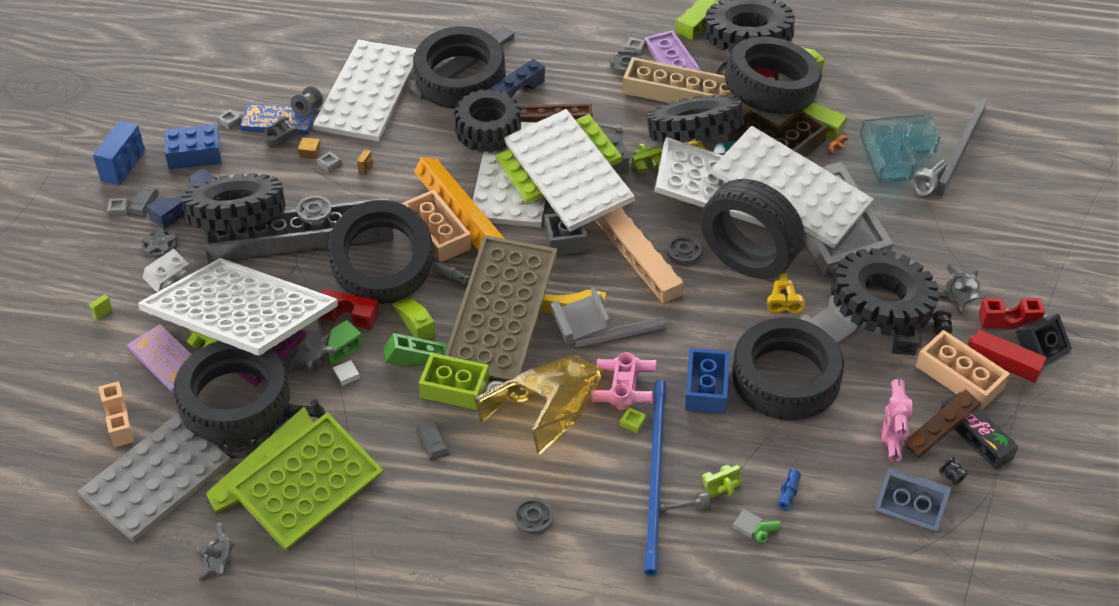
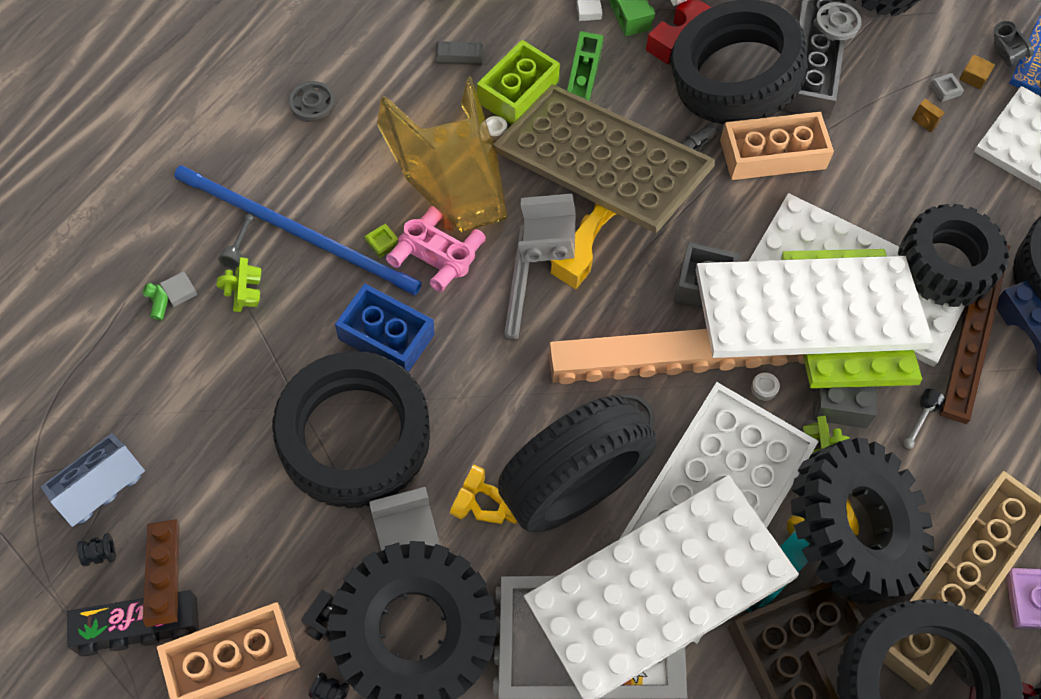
camera: 110 degrees right, 15 degrees up
(415, 318) = (637, 84): lime slope -> none
(437, 178) = (800, 182): light orange brick -> none
(789, 489) = (192, 351): blue pin -> none
(896, 420) = (187, 500): bright pink piece -> none

